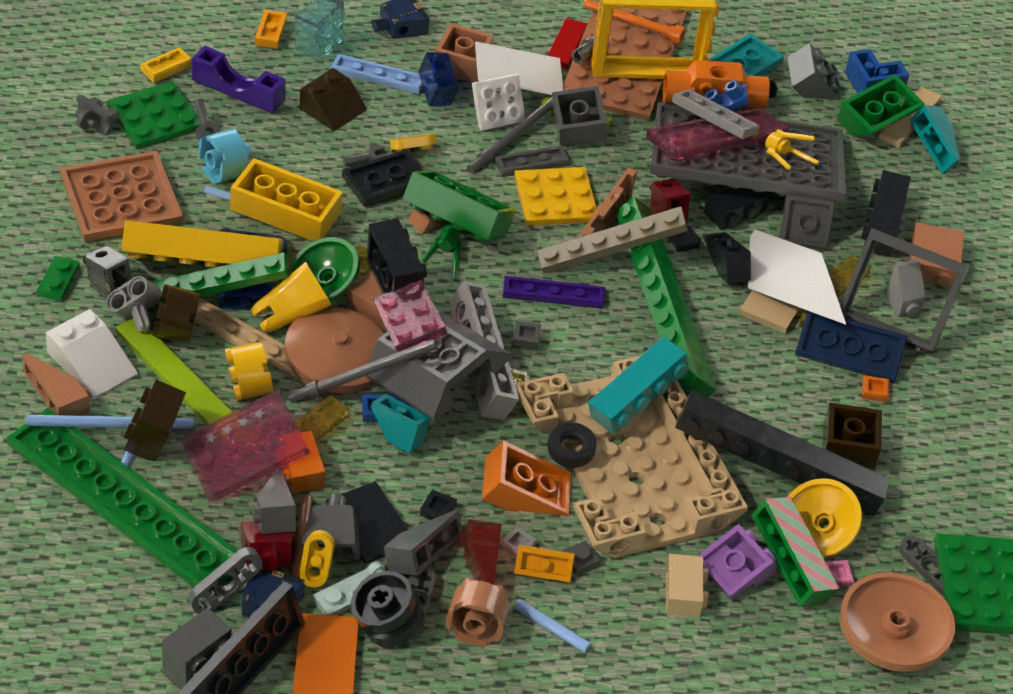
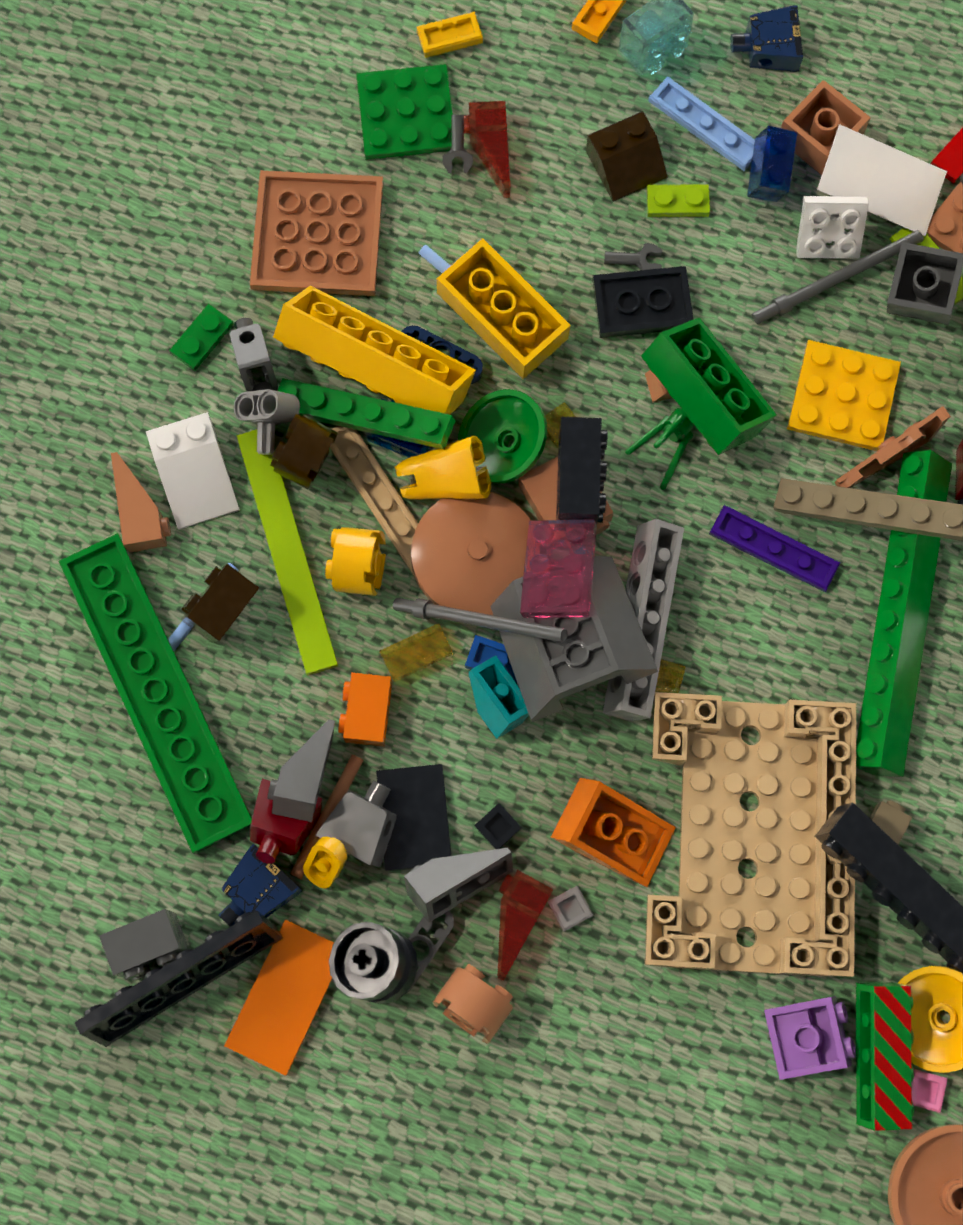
camera: 30 degrees right, 30 degrees up
(92, 114) = (327, 97): dark grey hips -> none
(94, 421) = (160, 573): light blue bar -> none
(214, 71) = (541, 114): dark purple arch -> none
(224, 155) = (456, 215): medium azure brick -> none
(227, 111) = (490, 140): none -> clear red slope
(227, 568) = (213, 856): dark grey beam -> none
(244, 446) = (310, 669): clear pink plate -> none
(337, 597) = (356, 907): light aqua plate -> none
(380, 118) = (678, 200): none -> lime plate
(423, 141) = (700, 254): yellow plate -> none
(526, 335) = (710, 607): dark grey plate -> none
(530, 160) = (839, 328): dark grey tile -> none
(544, 563) = (584, 953): light orange plate -> none
(552, 625) = (559, 1037): light blue bar -> none
(568, 458) = (701, 788): black tyre -> none
(583, 558) = (630, 955): dark grey plate -> none
(638, 385) = (800, 756): teal brick -> none
(685, 585) = (733, 1046): tan brick -> none

